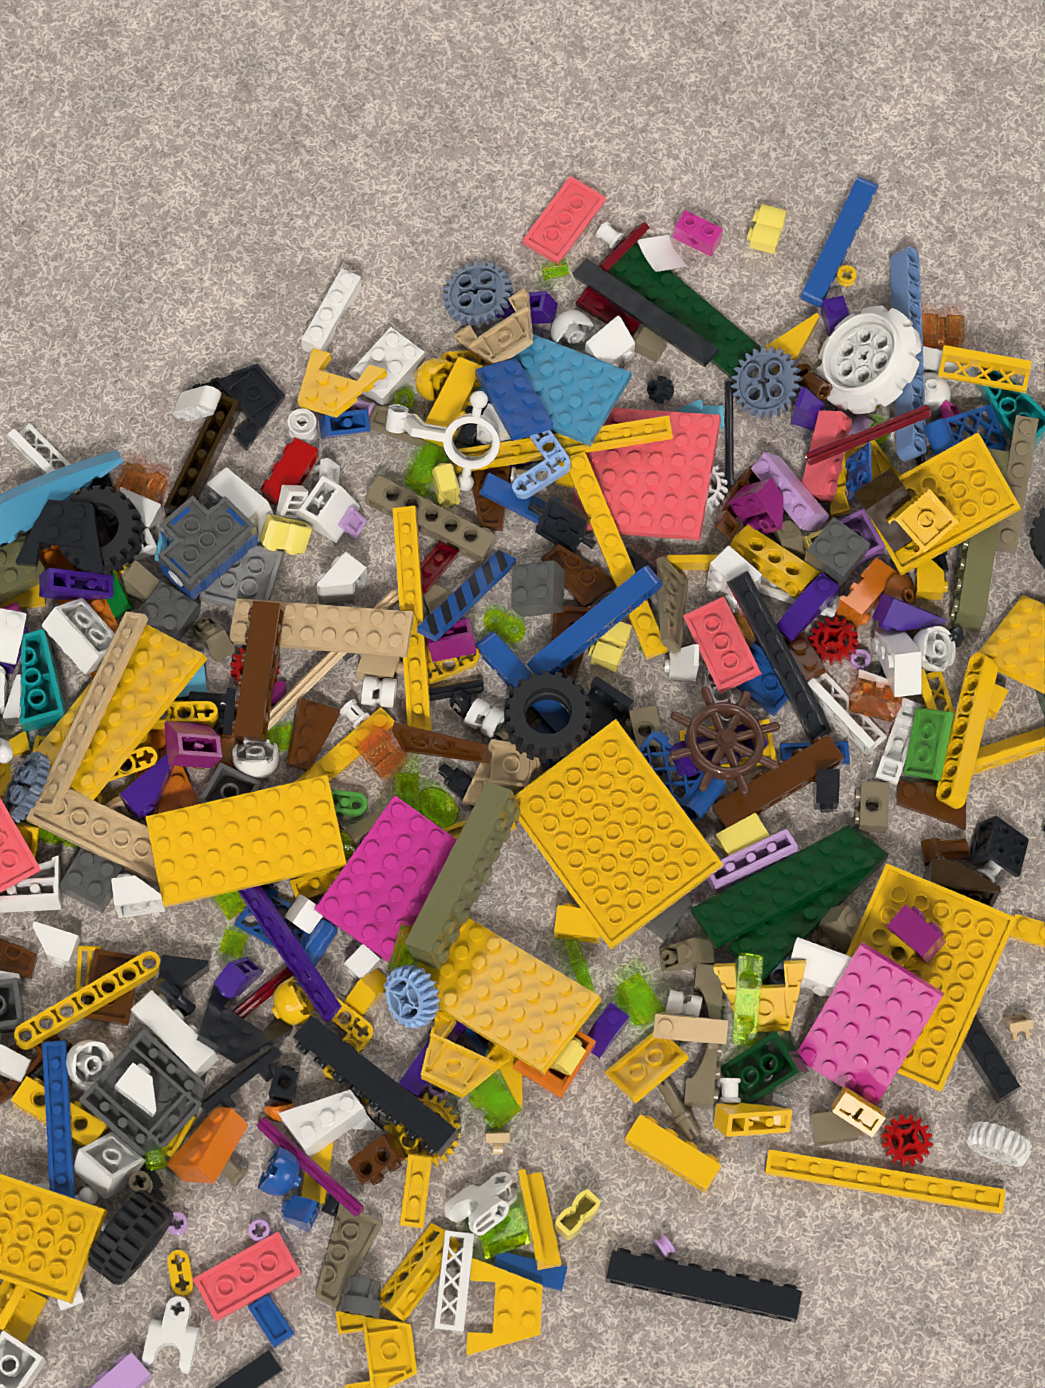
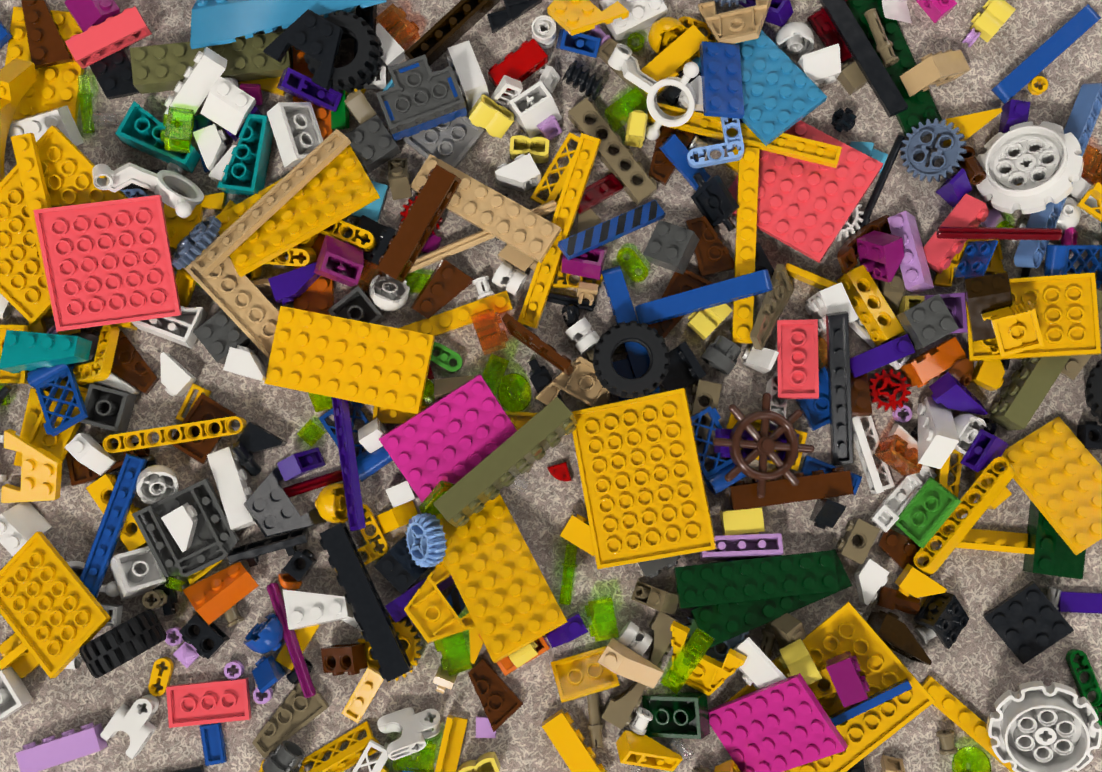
camera: 25 degrees right, 15 degrees up
(199, 1236) = (186, 654): none -> lavender tile
(213, 1200) = (206, 632): none -> black brick
(296, 1239) = (257, 699): none -> lavender bush
(332, 548) = (536, 146): none -> light yellow brick
(367, 458) = (584, 80): none -> black piece
(391, 573) = (558, 186): none -> yellow fence
(395, 1041) = (399, 567): none -> black slope
(468, 671) = (587, 291): none -> tan tile
(524, 870) = (560, 472): none -> red tile
(557, 1131) = (495, 695): none -> reddish brown wing
(565, 1172) = (484, 728): none -> lavender tile
(641, 676) = (722, 354): none -> dark grey piece
(667, 299) = (884, 46): none -> dark tan pin
(730, 302) = (935, 70): none -> tan wedge
(755, 255) = (971, 37): none -> lavender bush
(859, 933) = (798, 660): none -> light yellow brick
(902, 841) = (868, 580): none -> white slope
(953, 821) = (917, 583): none -> yellow slope
(955, 945) = (872, 701): none -> blue tile
(956, 657) = (983, 451): none -> dark purple slope

